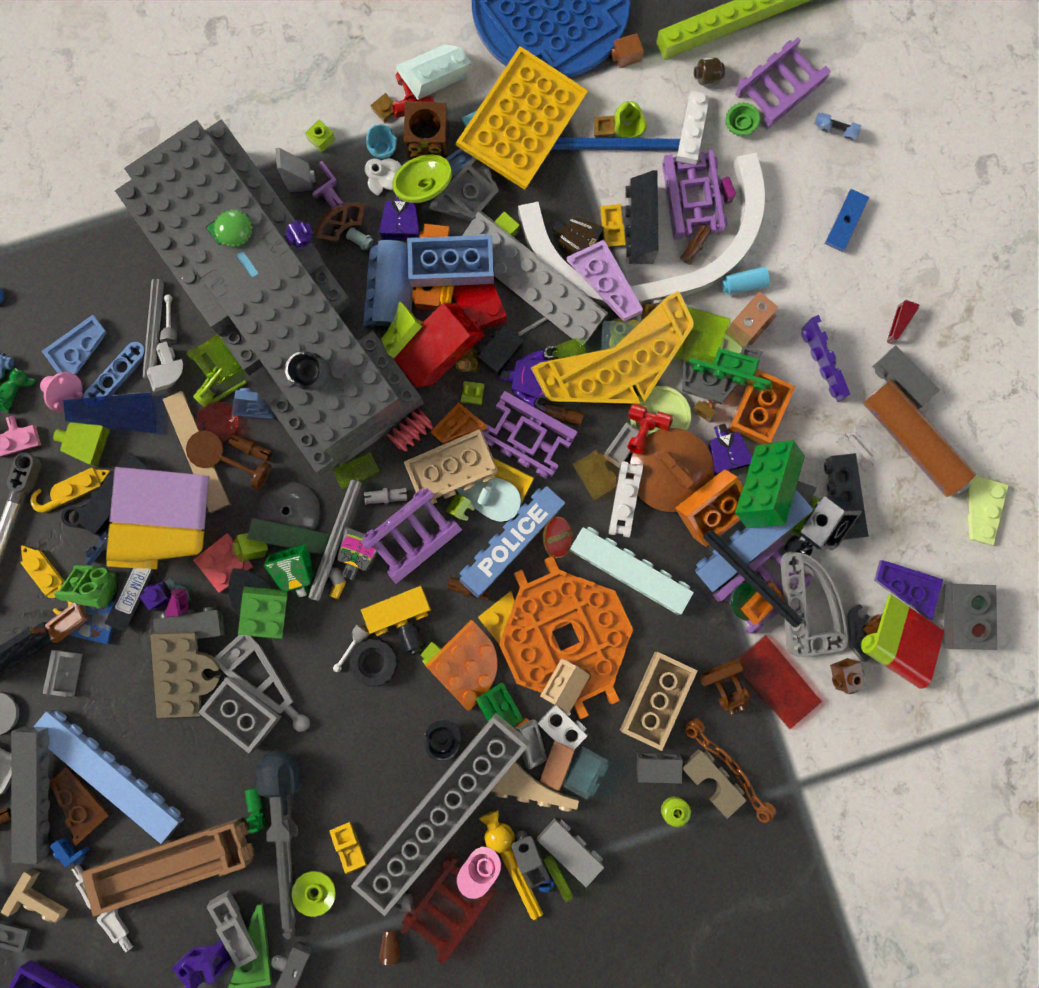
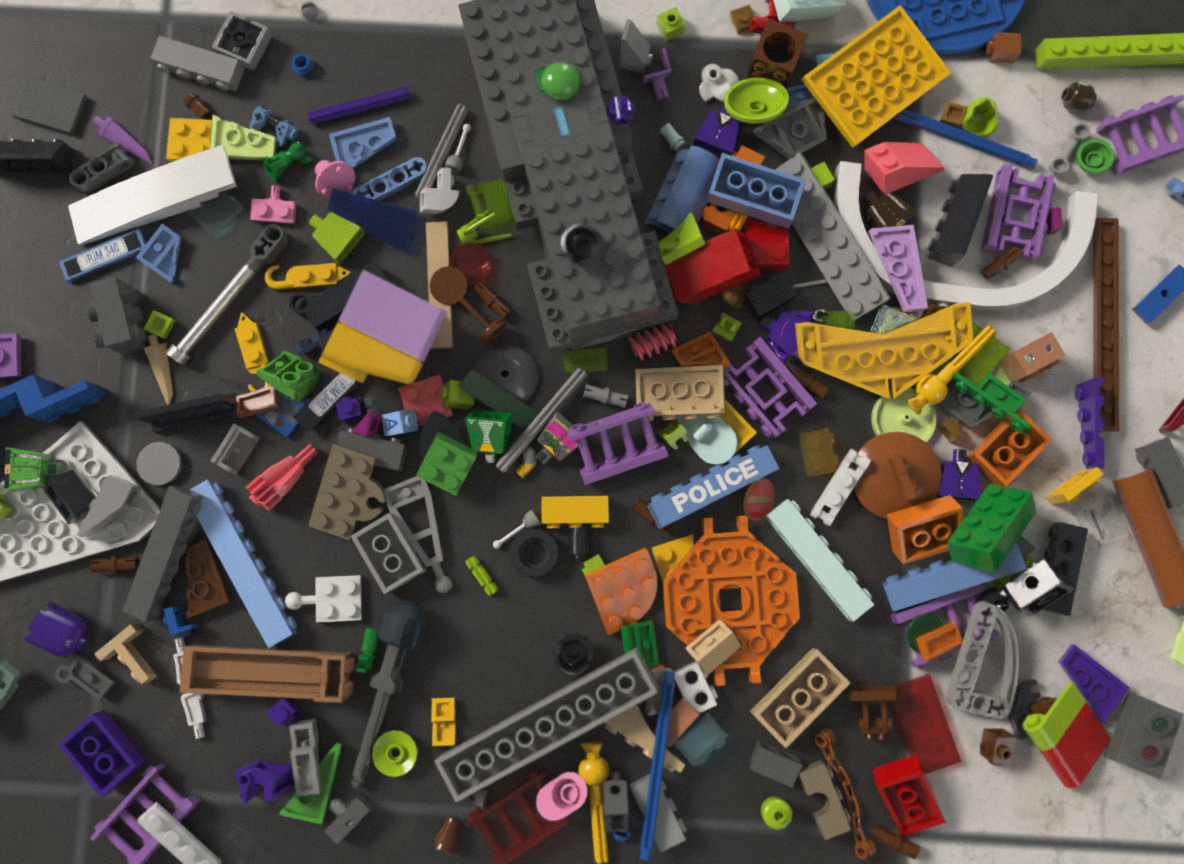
camera: 25 degrees right, 0 degrees up
(60, 314) = (359, 105): none -> dark purple axle
(113, 685) = (279, 478): none -> coral piece
(198, 895) = (284, 712): none -> dark purple brick
(205, 591) = (399, 422): none -> light blue brick
(206, 775) = (335, 599): none -> white plate
(251, 405) = (510, 259): medium blue wing -> none
(333, 701) = (481, 575): none -> lime axle
(338, 219) = (659, 111): reddish brown brick -> none
(381, 141) = (728, 50): medium azure hair -> none
(554, 813) = (657, 766): none -> blue piece
(558, 878) = (636, 830): clear neon green tile -> none
(572, 189) = (899, 164): none -> coral slope
(613, 226) = (926, 218): yellow slope -> none
(618, 449) = (856, 433): light grey tile -> none
(648, 422) = (890, 420): red bar -> none
(675, 380) = (933, 388): none -> yellow piece
(693, 127) = (1042, 146): white plate -> none
(721, 106) = (1077, 136): none -> light grey bar
(745, 281) = (1039, 317): medium azure brick -> none
(753, 579) = (940, 614): black axle -> none
(786, 750) = (908, 795): none -> red slope
(790, 795) = (895, 842): none -> reddish brown pin
(805, 261) = (1106, 317): none -> reddish brown plate
(828, 424) = (1071, 489): none -> yellow plate

